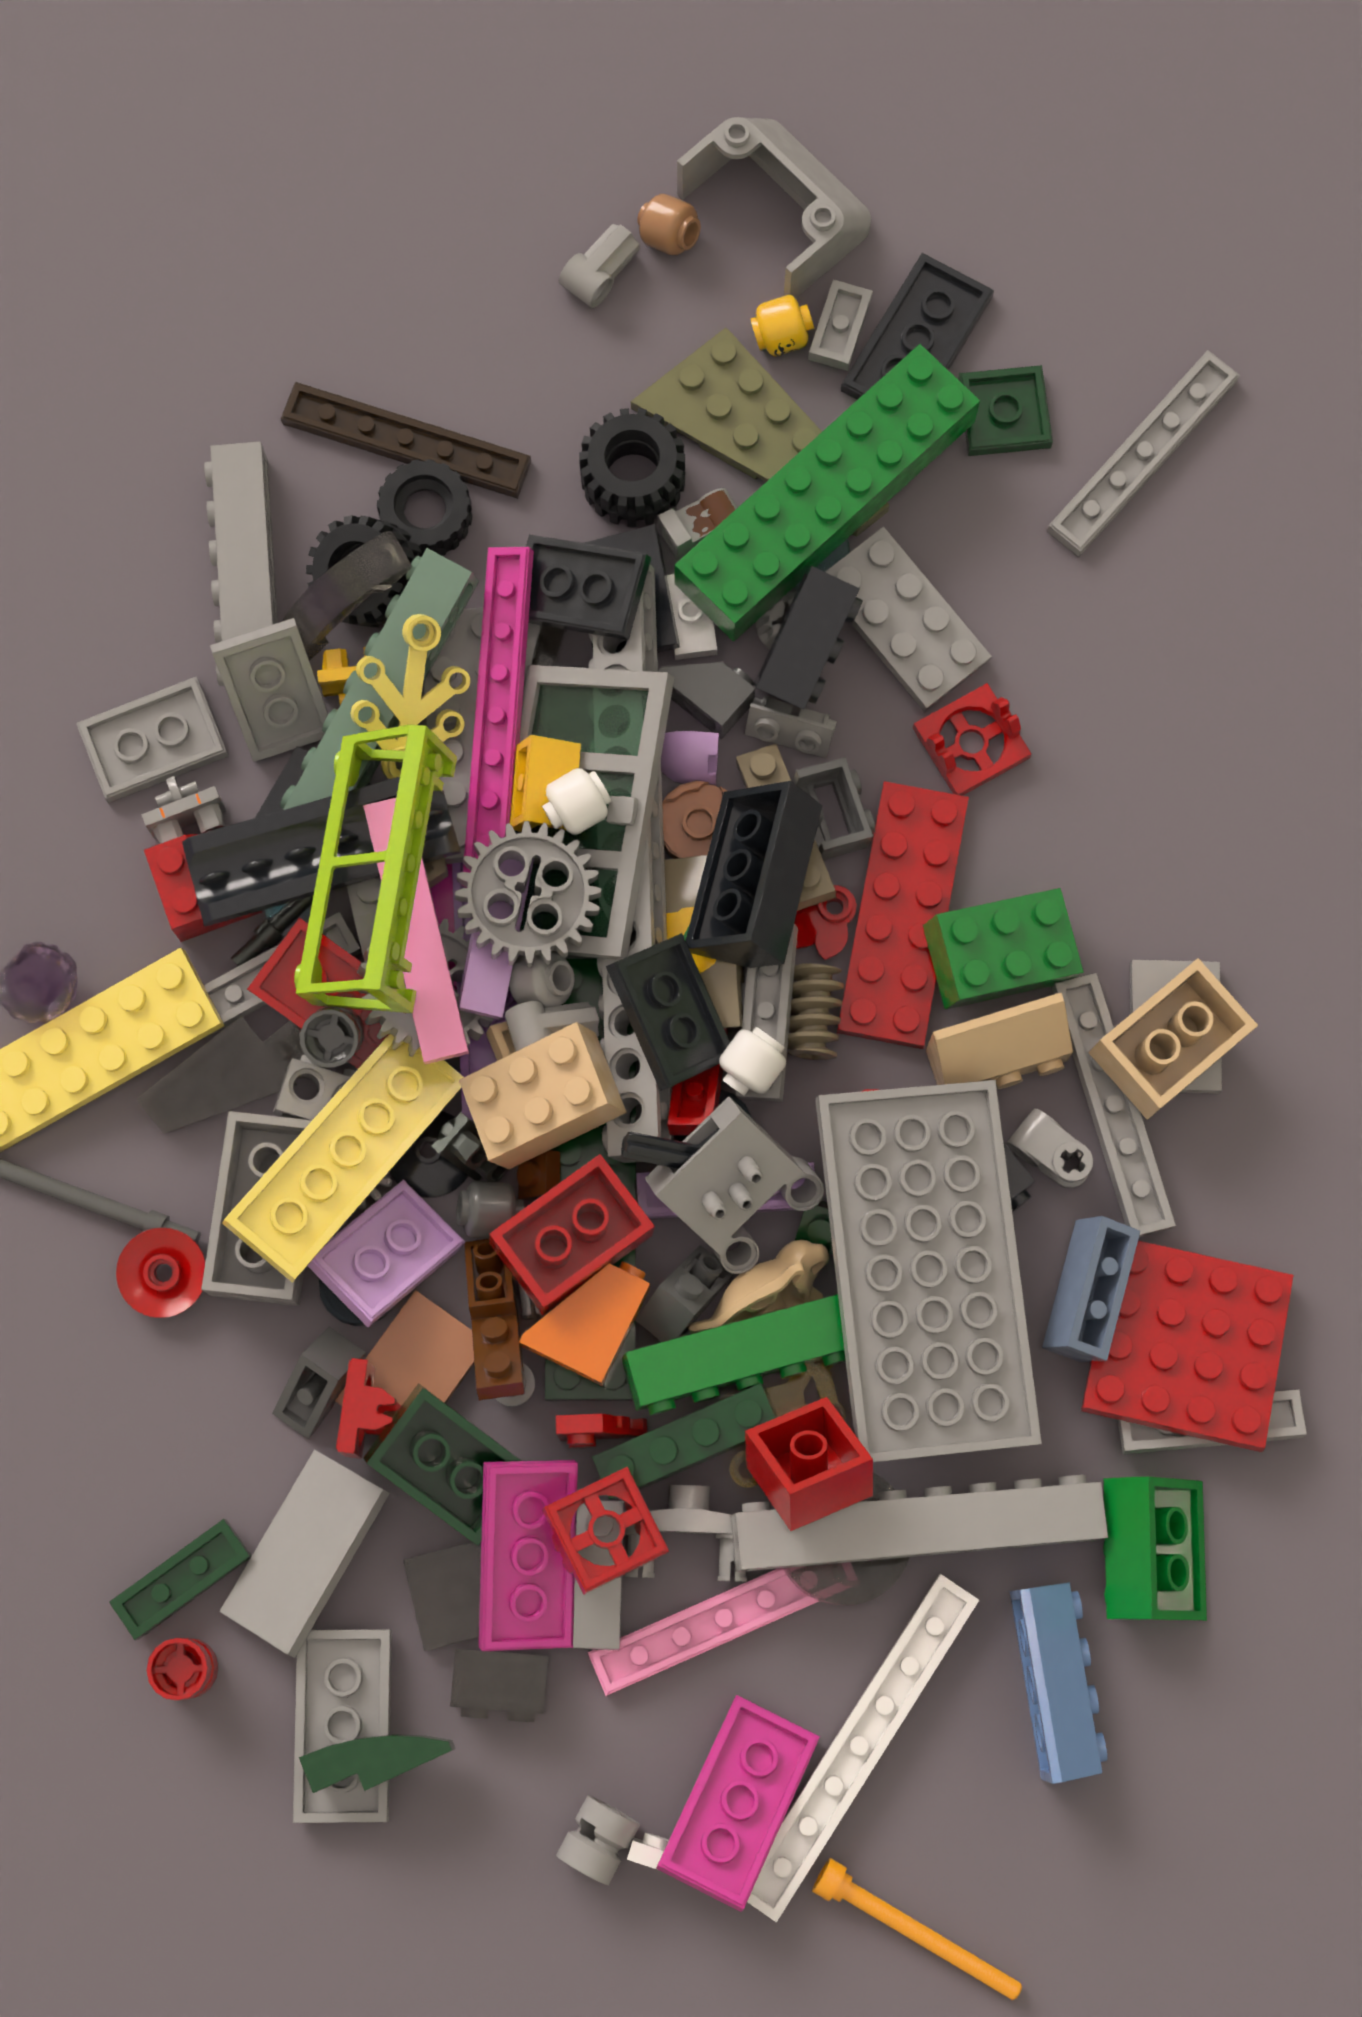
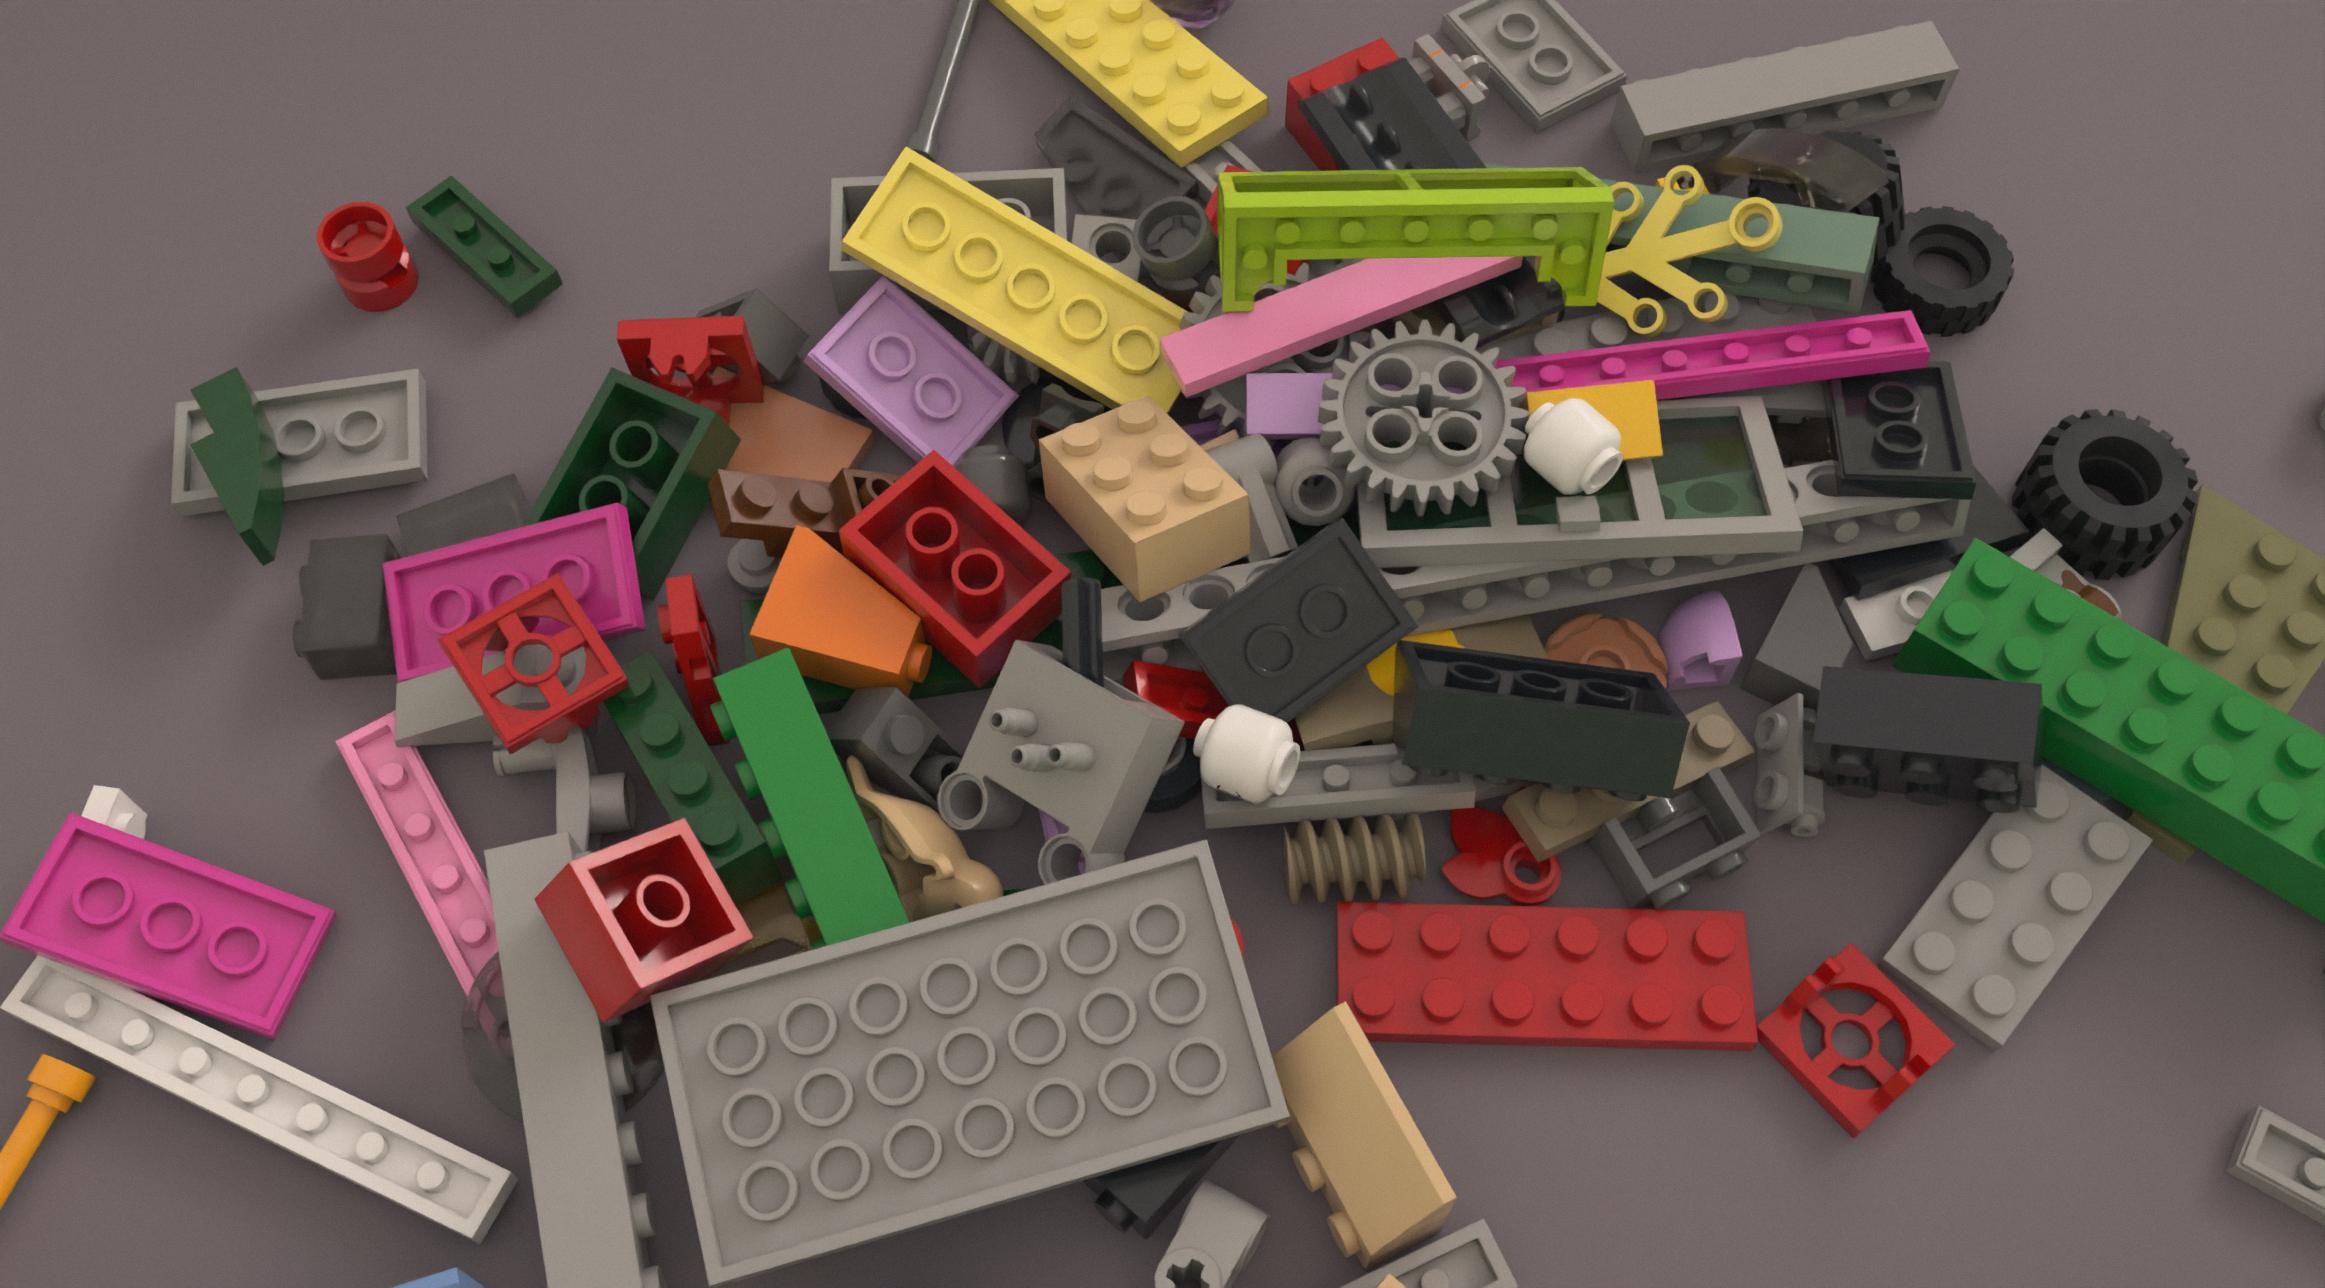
camera: 80 degrees right, 15 degrees down
(138, 1272) = (854, 148): red dish -> none
(272, 689) = (1636, 113): light grey plate -> none
(304, 1553) = (503, 358): light grey tile -> none
(405, 438) = (2031, 222): dark brown tile -> none
(538, 1175) = (1055, 536): reddish brown plate -> none
(597, 1840) = (128, 751): light grey wheel -> none
(1002, 948) = (1520, 1118): green brick -> none

